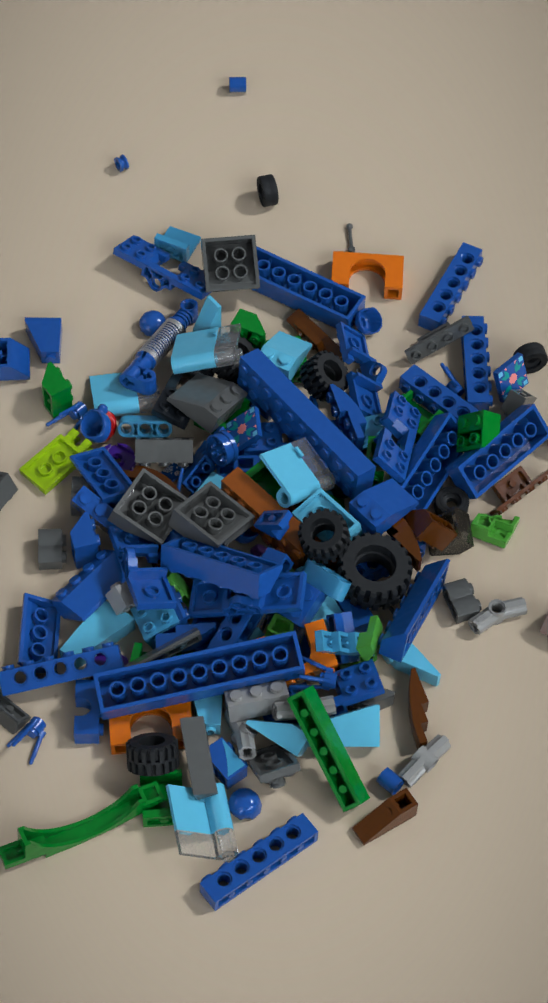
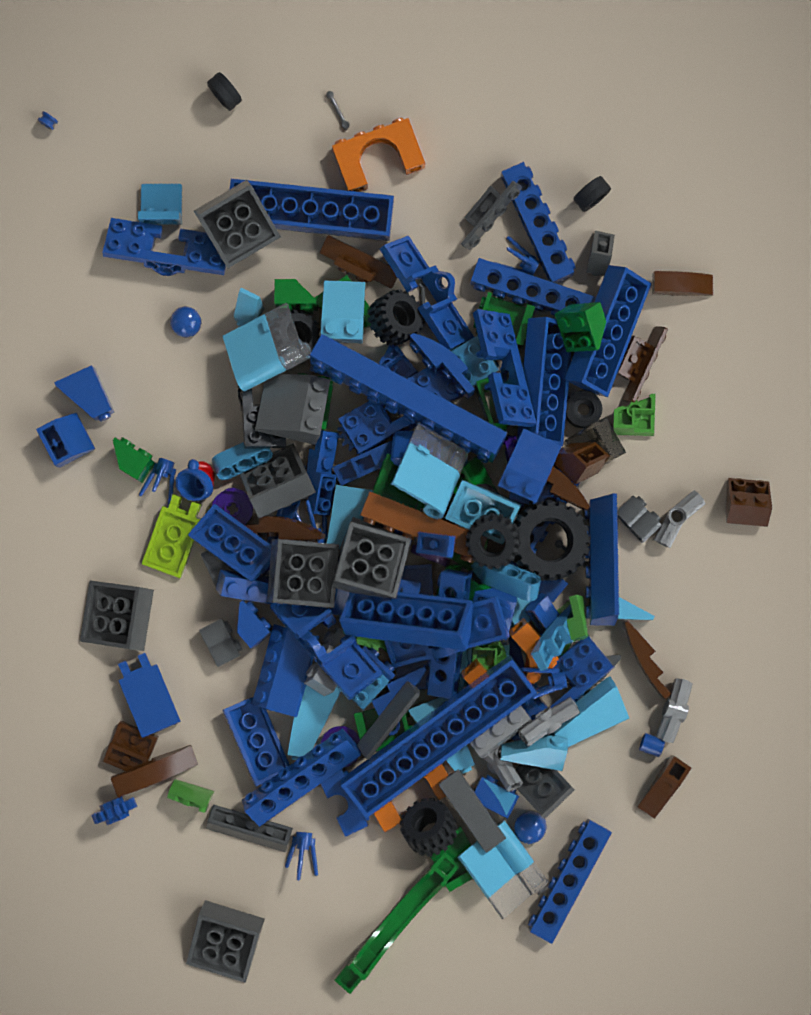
camera: 20 degrees left, 30 degrees up
(120, 400) = (200, 422): medium azure door -> none
(140, 374) = (206, 373): blue piece -> none
(222, 448) = (337, 463): blue wheel -> none
(246, 428) = (349, 431): tile -> none
(328, 748) = (589, 754): green brick -> none
(368, 321) = (407, 220): blue hair -> none
(450, 287) = (472, 81): blue brick -> none
(510, 376) = (582, 229): tile -> none

